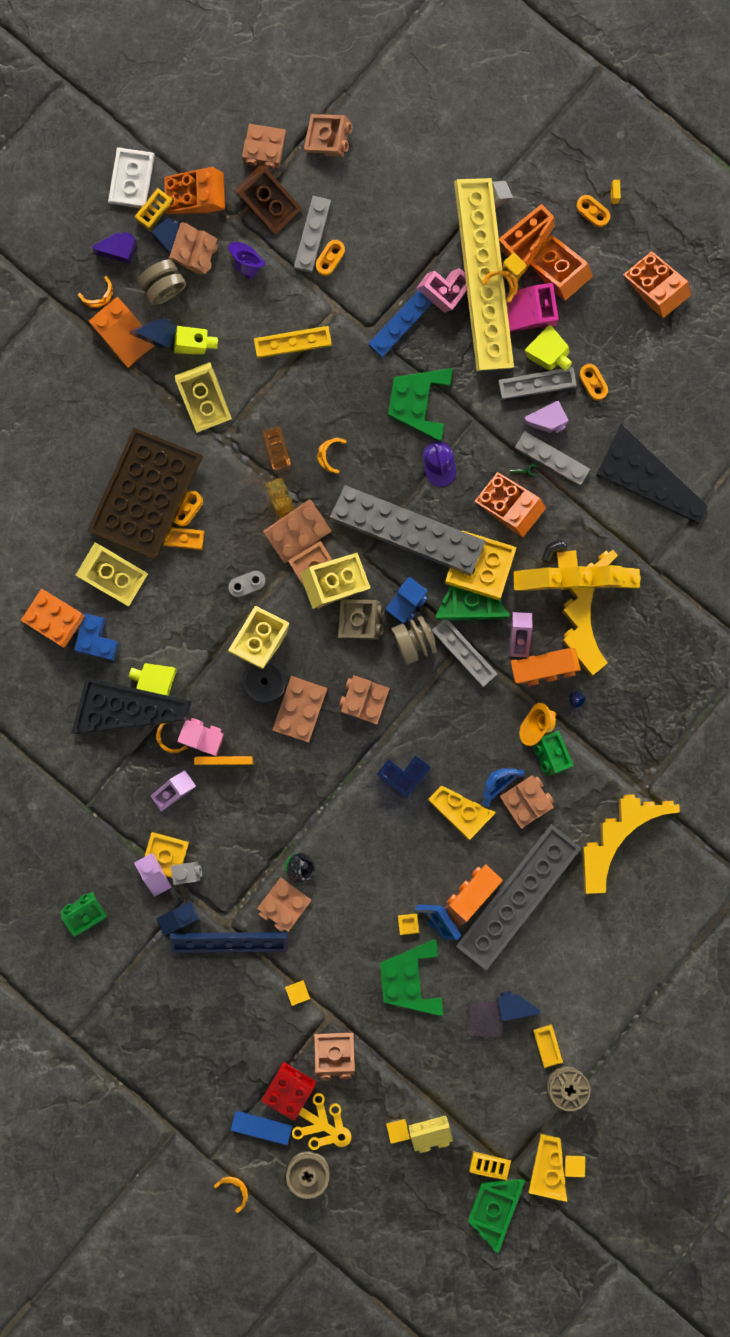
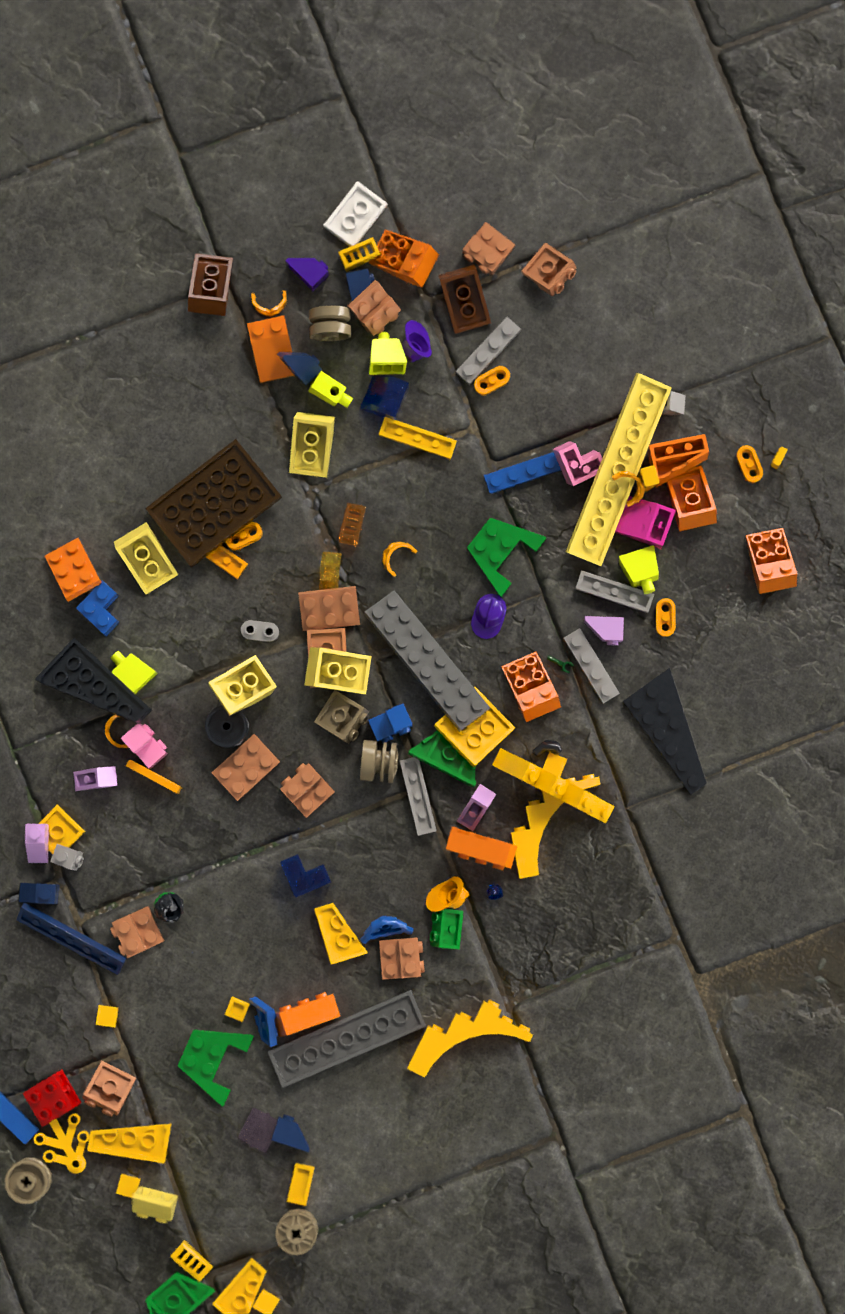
camera: 30 degrees right, 0 degrees up
(37, 305) = (210, 284): none -> reddish brown slope
(227, 284) = (387, 356): none -> neon yellow torso
(243, 320) = (385, 396): none -> clear blue slope
(383, 1089) = (137, 1142): none -> yellow wing

